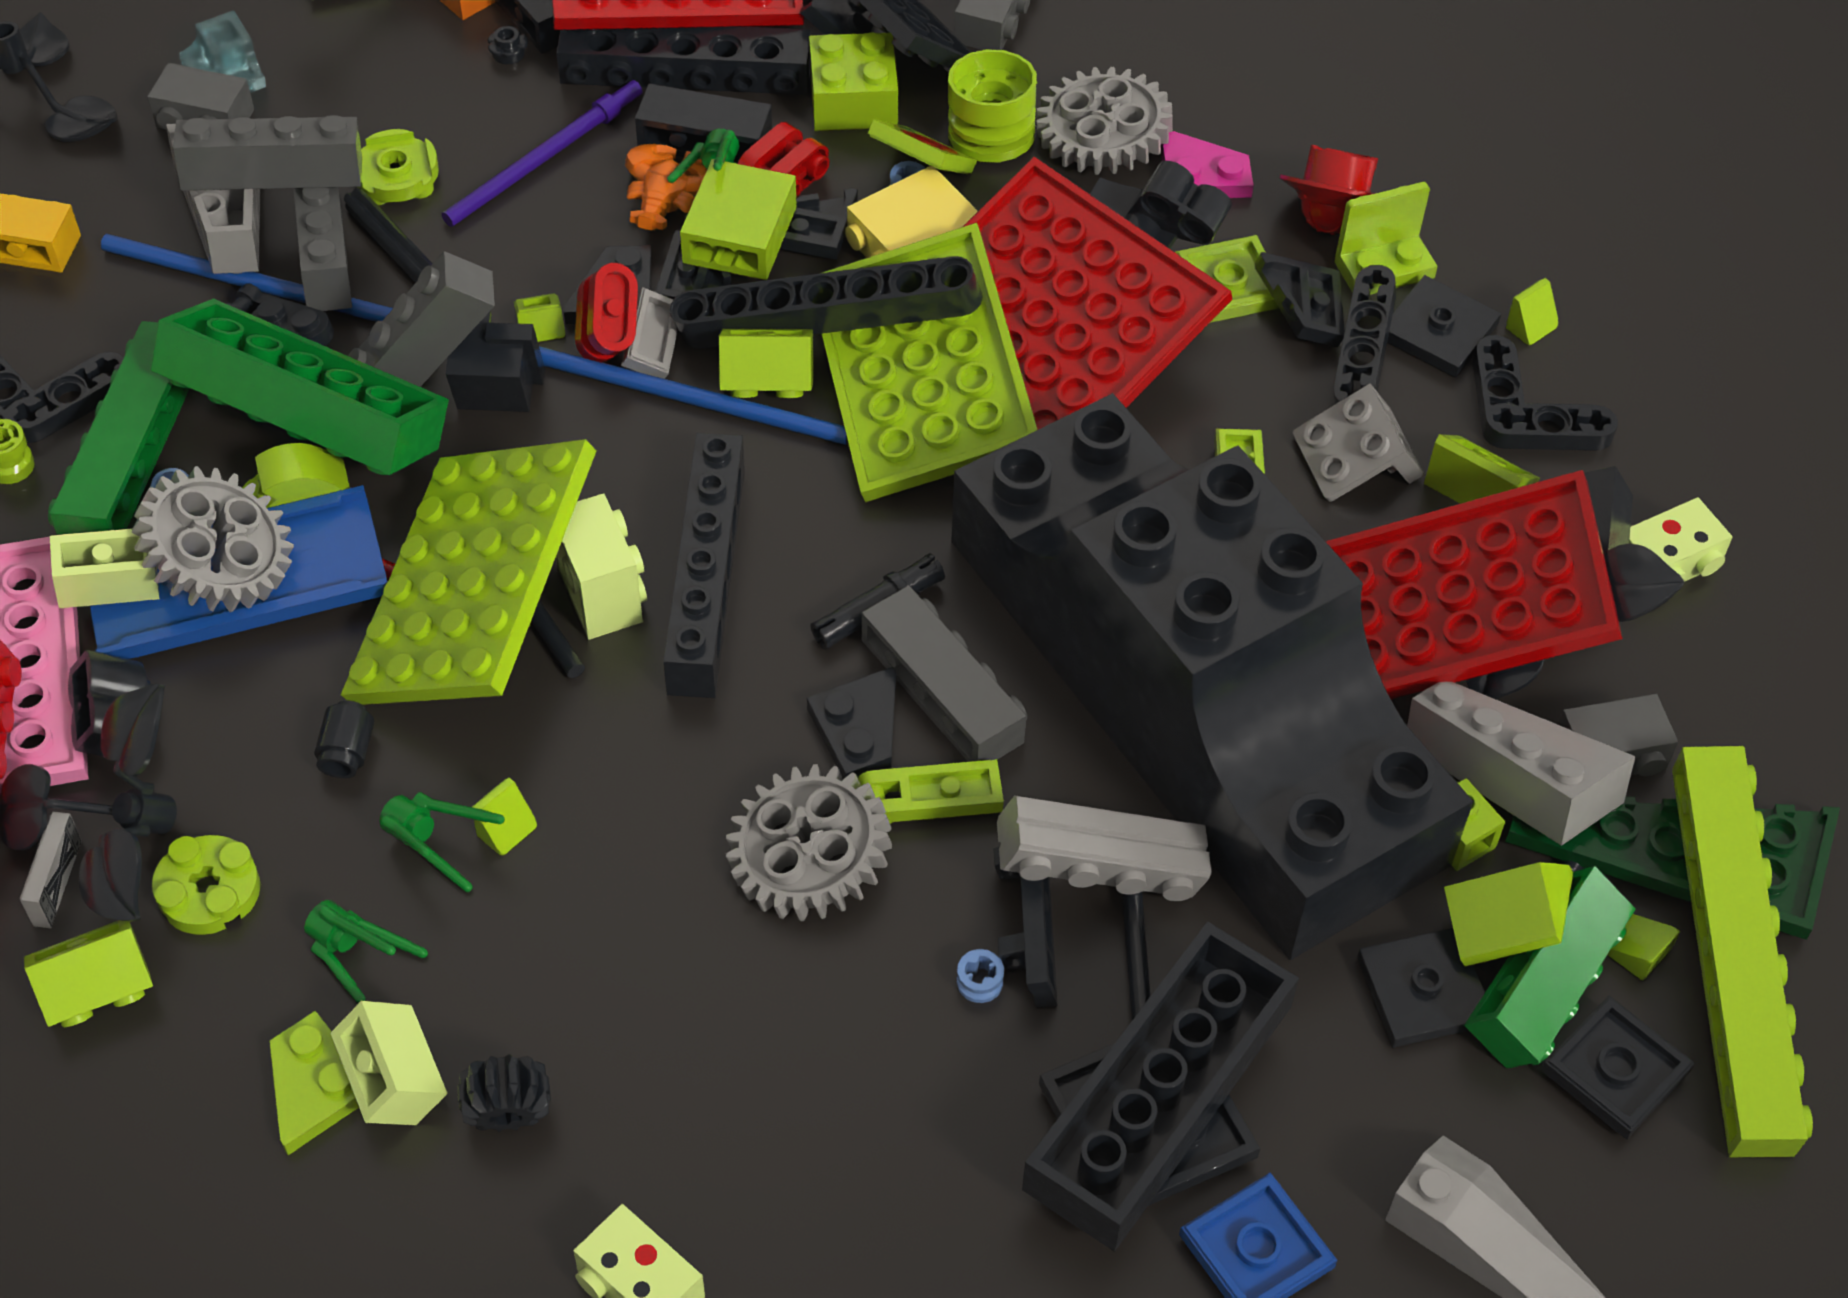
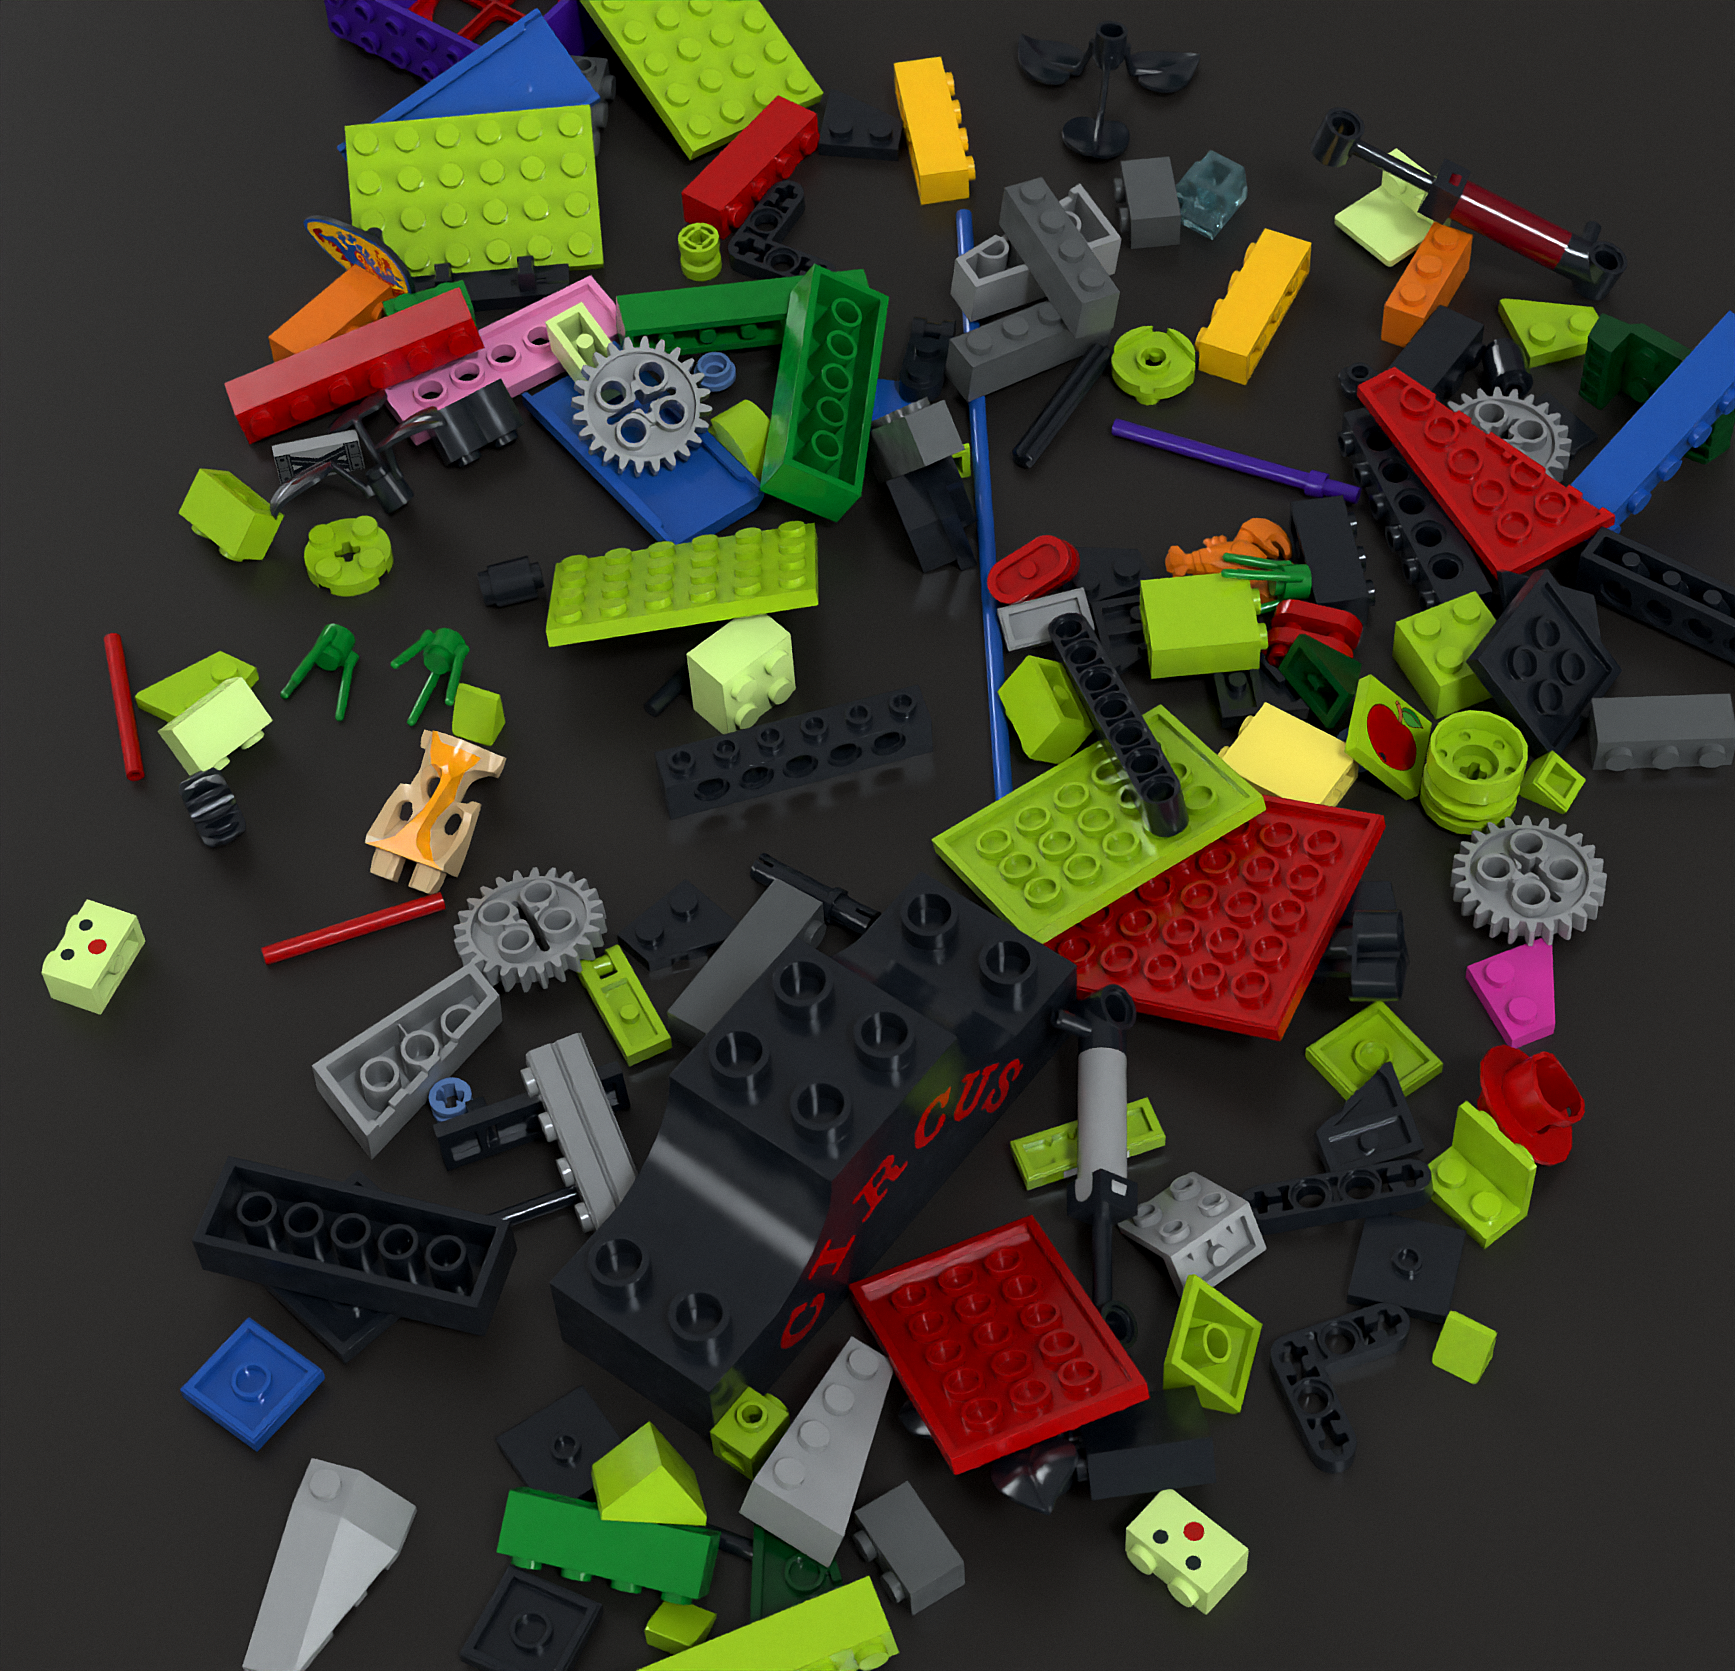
camera: 75 degrees right, 0 degrees up
(284, 1165) = (124, 707): none -> red piece
(378, 75) = (1253, 306): none -> yellow brick
(543, 313) = (1028, 526): lime slope -> none
(648, 898) = (424, 835): none -> tan hips
(716, 1012) = (353, 928): none -> red bar
(842, 165) = (1321, 677): none -> dark green slope
(931, 1003) = (389, 1068): none -> light grey wedge
(1295, 474) = (1102, 1191): none -> piece

